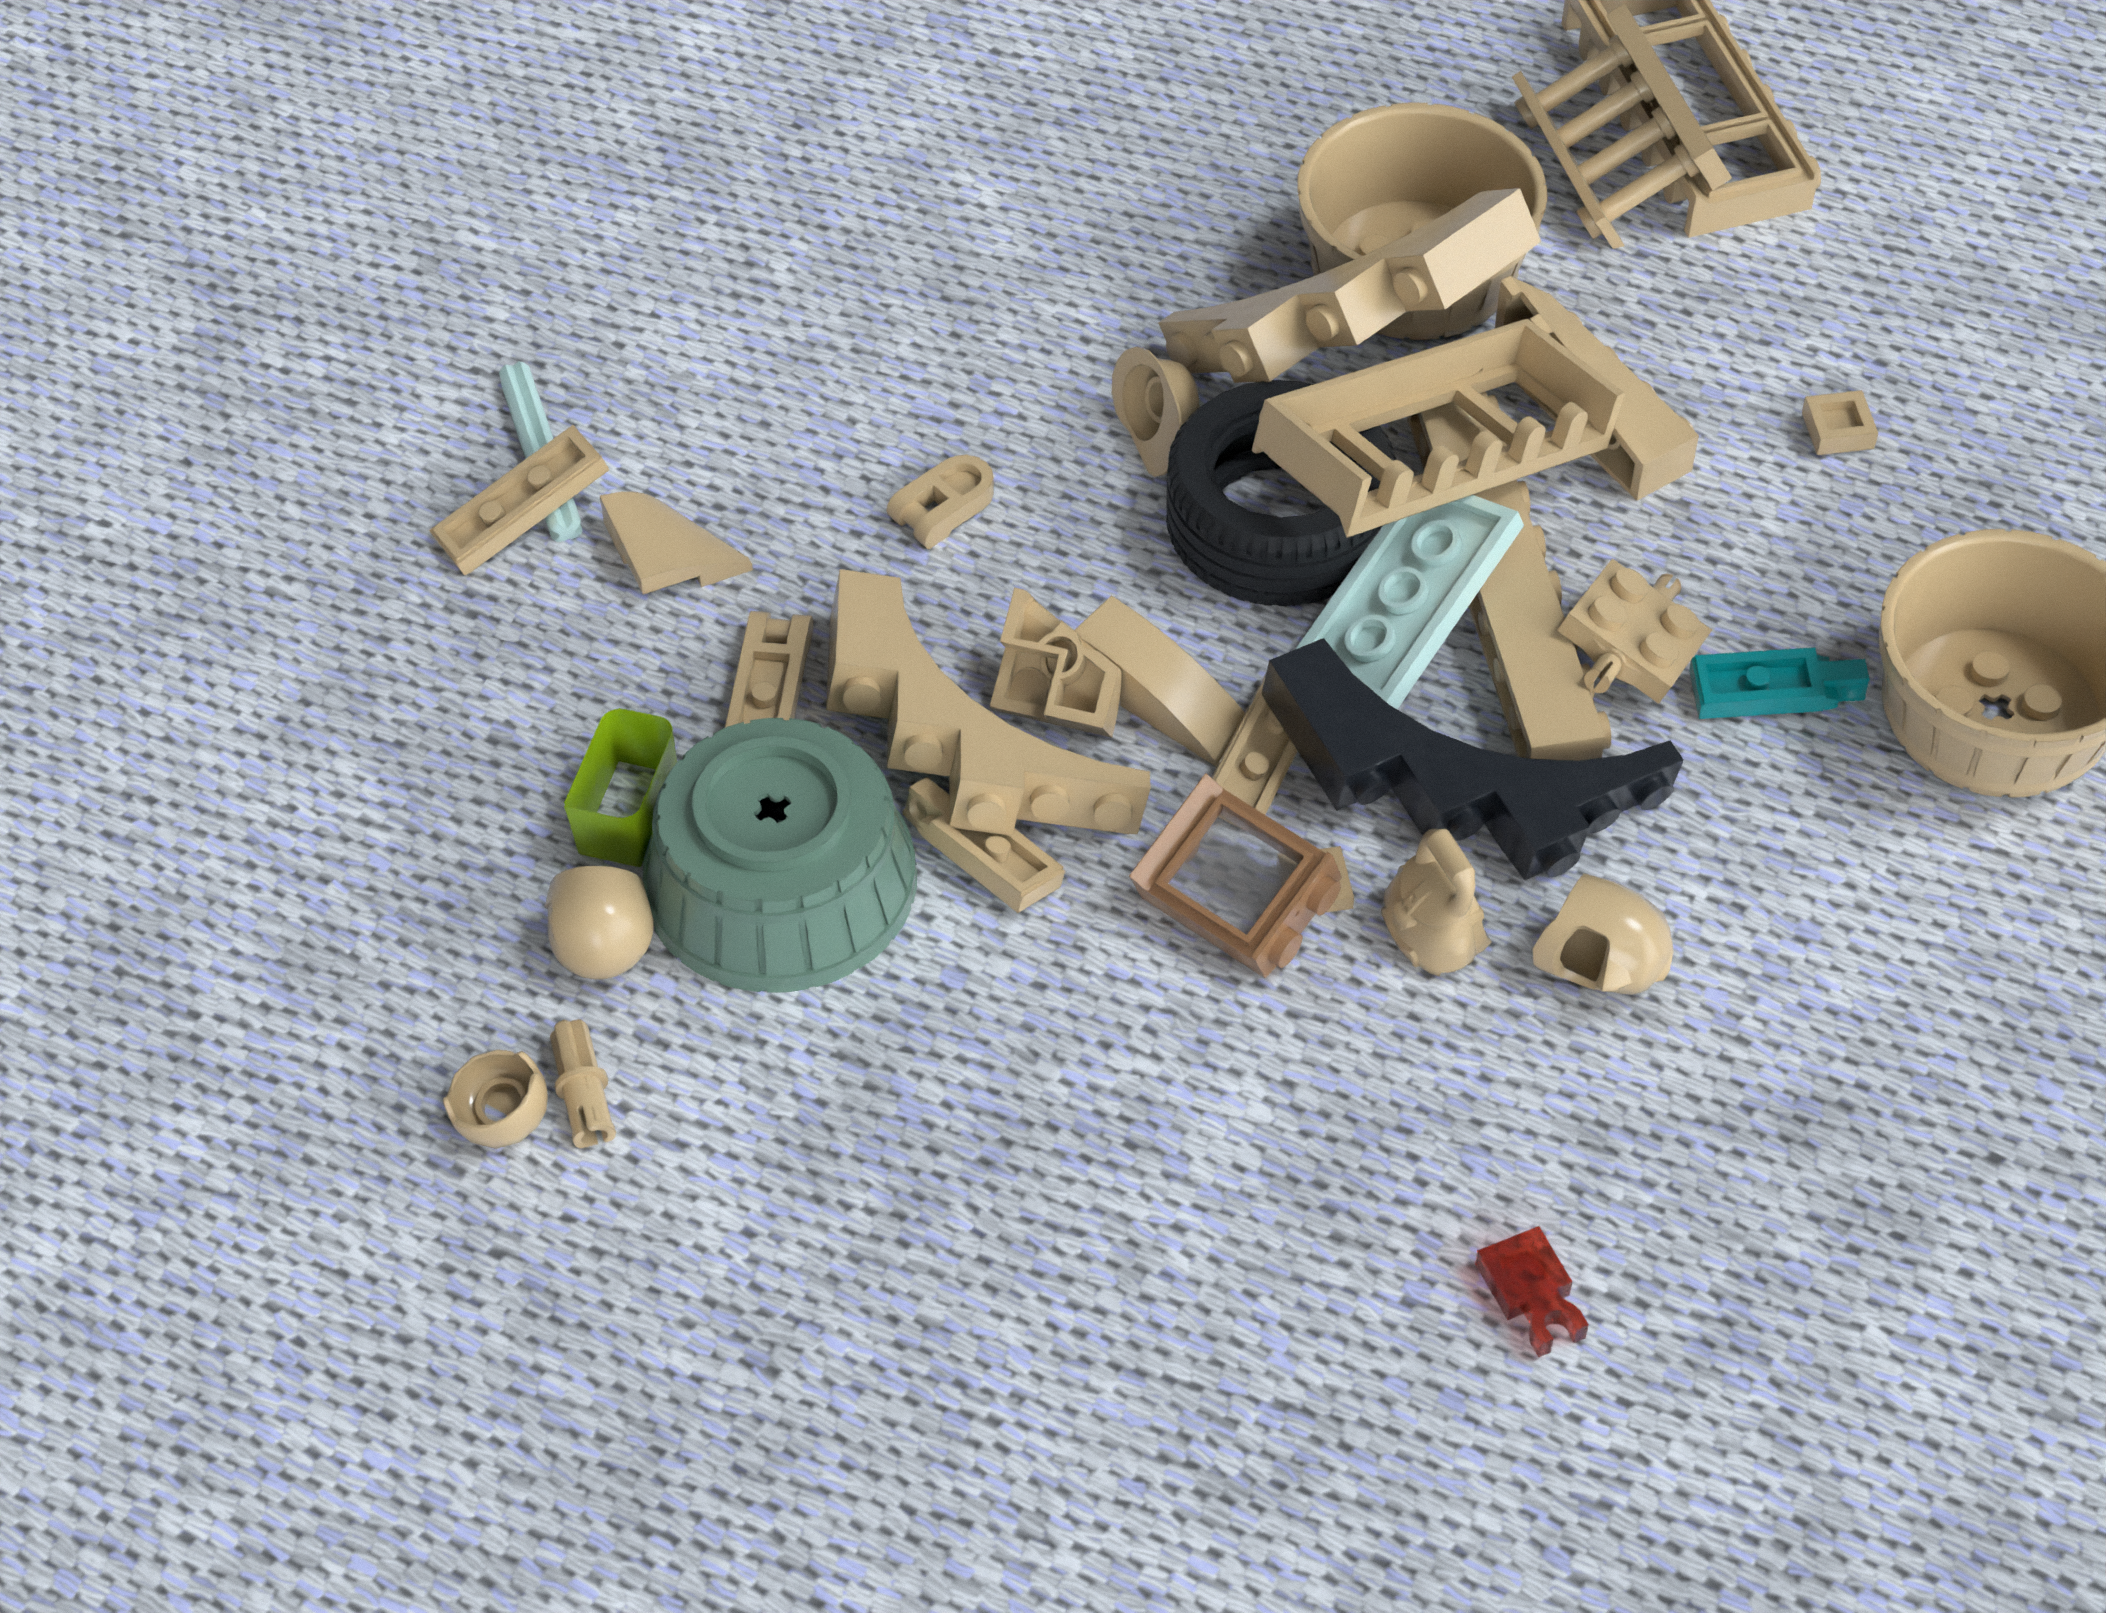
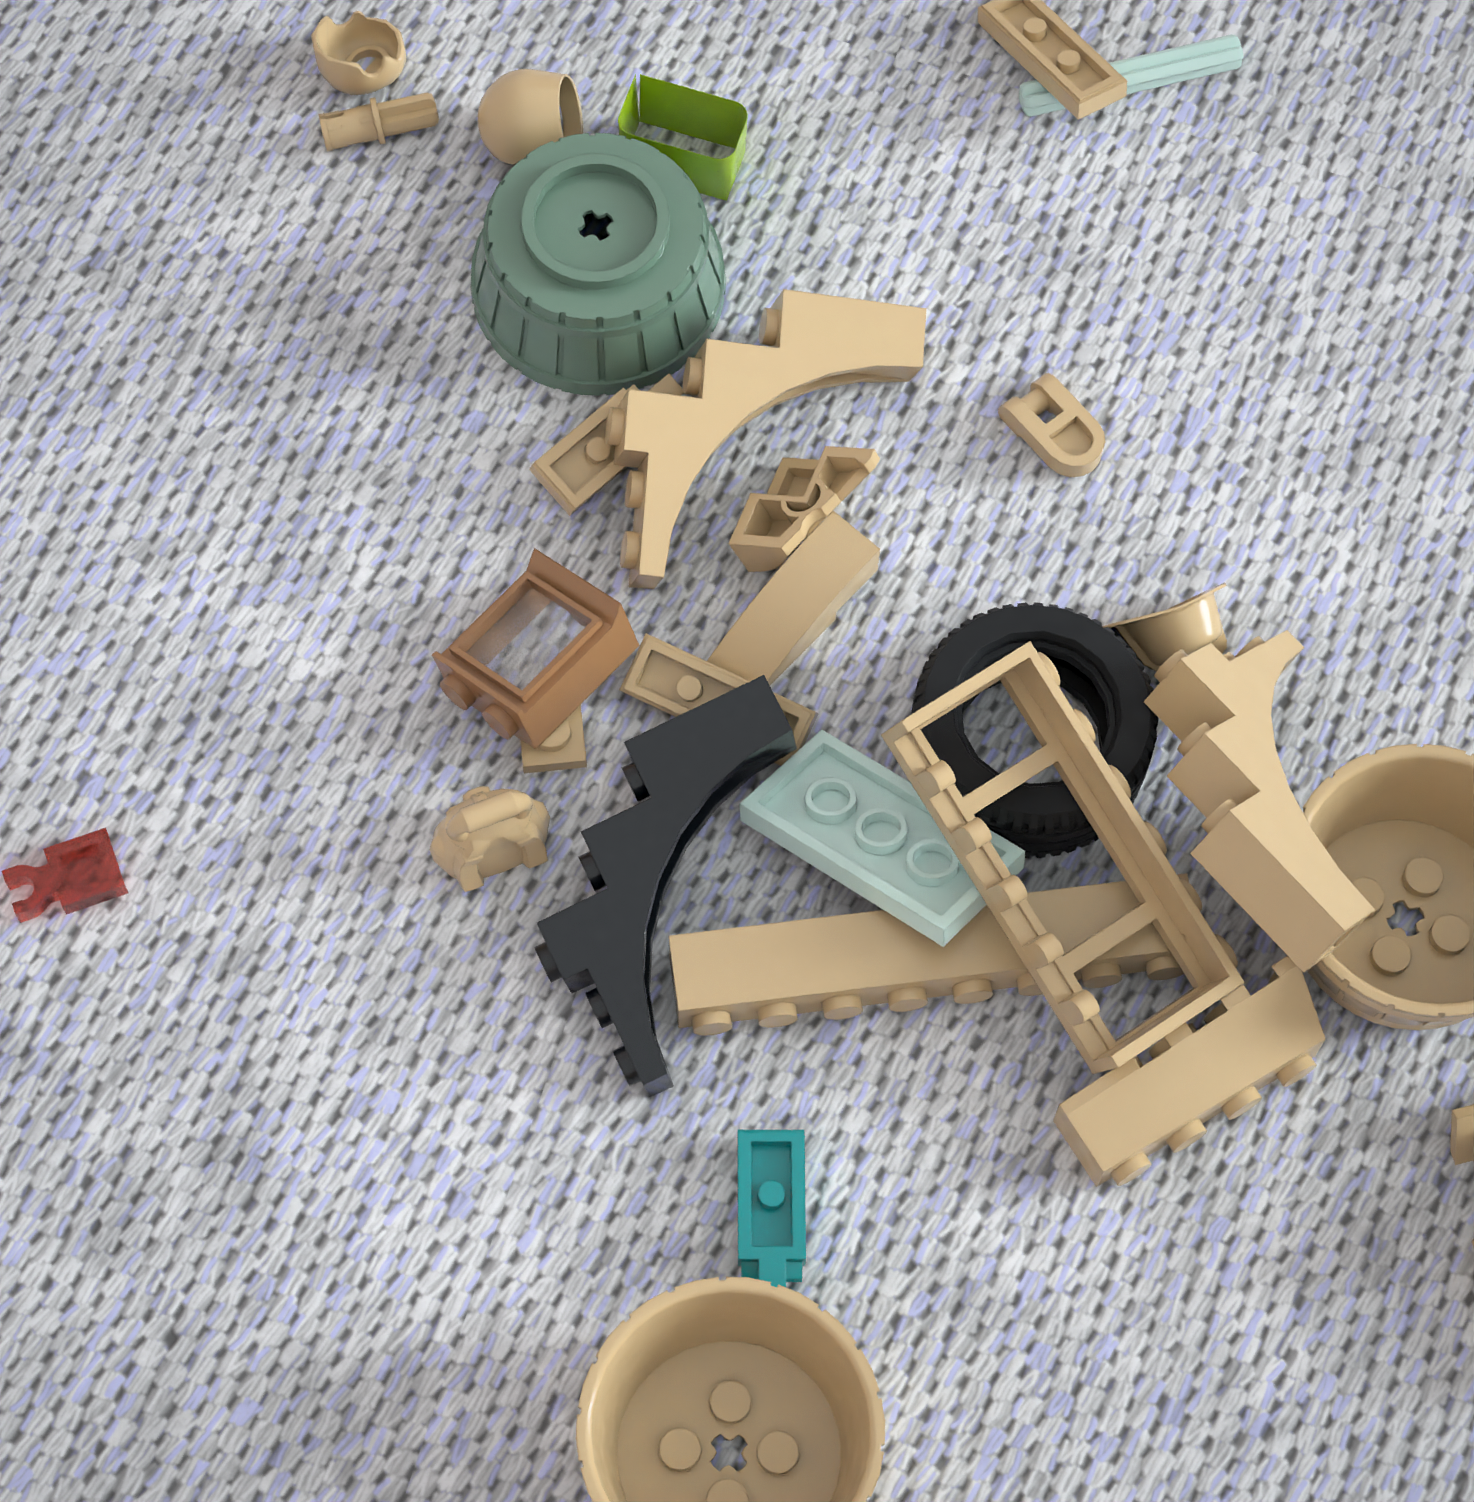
camera: 90 degrees right, 15 degrees up
(666, 545) = (1001, 179): tan slope -> none
(770, 672) = (820, 264): tan plate -> none
(1606, 939) = (435, 987): tan piece -> none
(1634, 631) = (833, 1069): tan plate -> none
(1839, 422) = (1154, 1355): tan plate -> none

